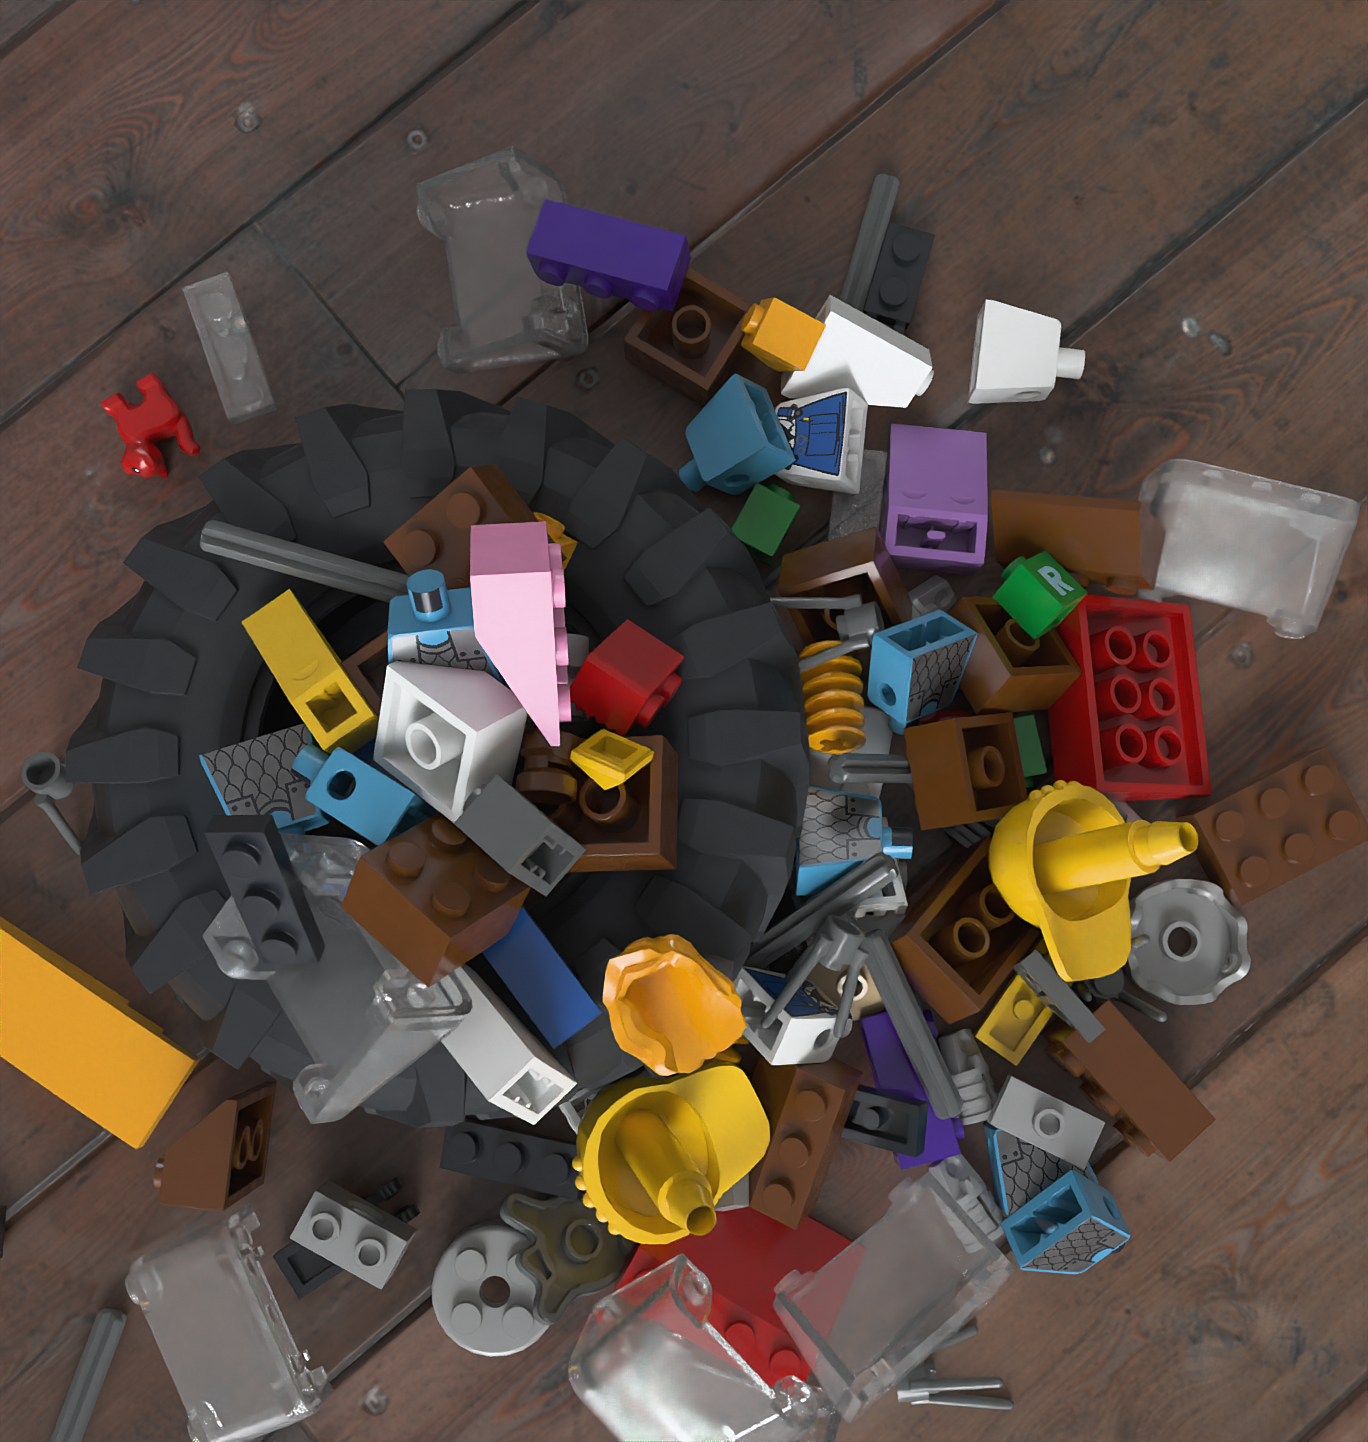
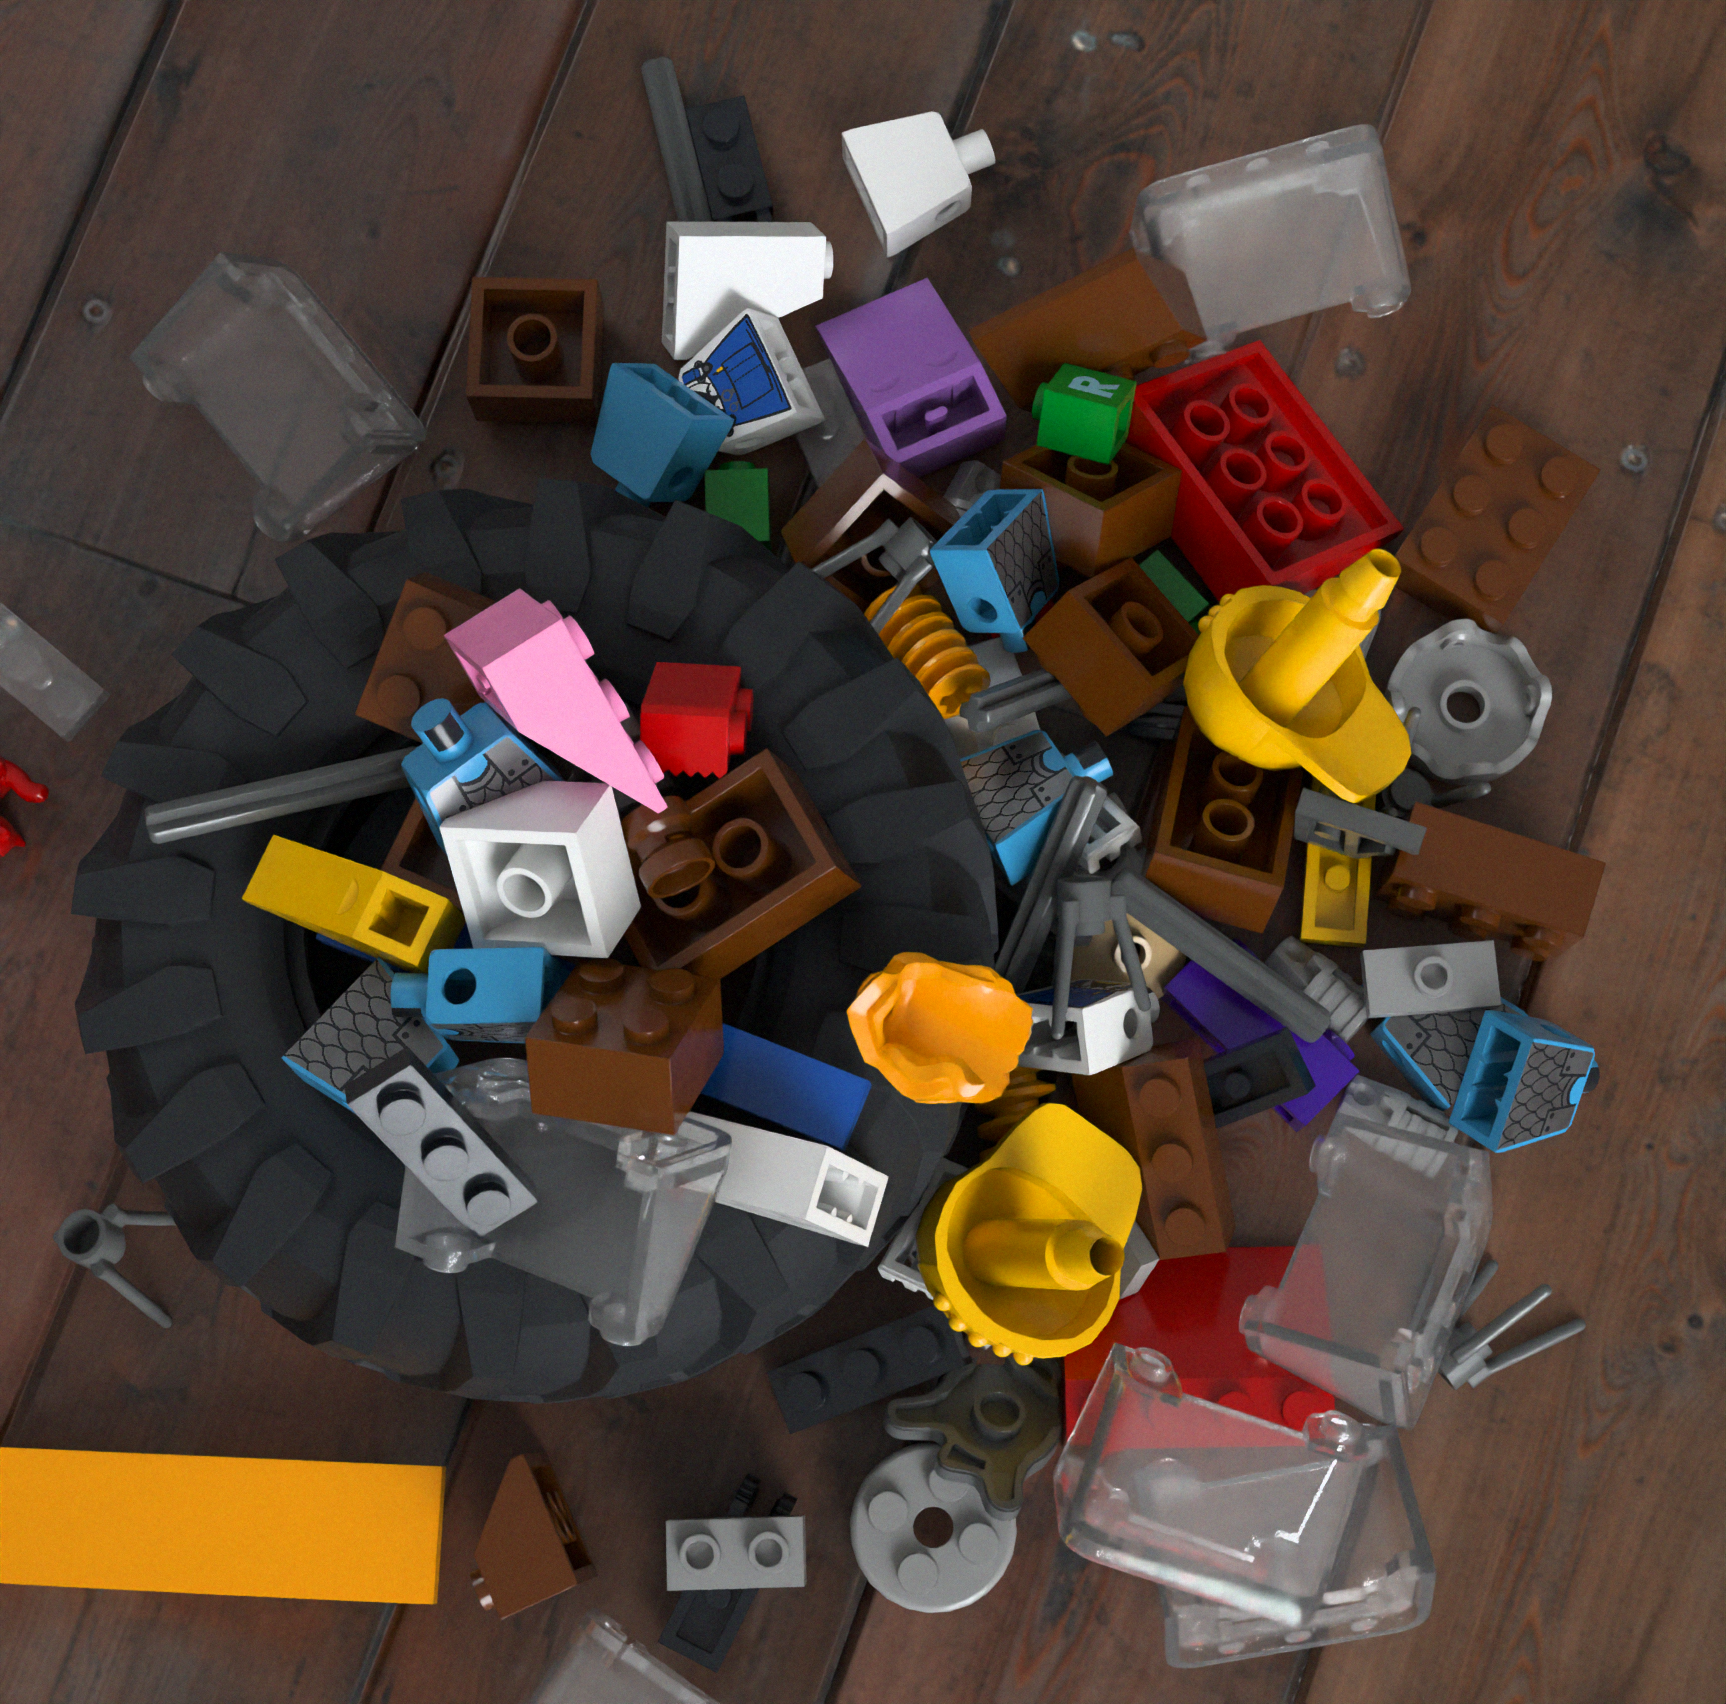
camera: 25 degrees left, 5 degrees down
(518, 835) = (679, 922): dark grey brick -> none
(608, 256) = (397, 312): dark purple brick -> none
(610, 758) = (726, 800): yellow slope -> none
(780, 335) = (639, 294): light orange slope -> none

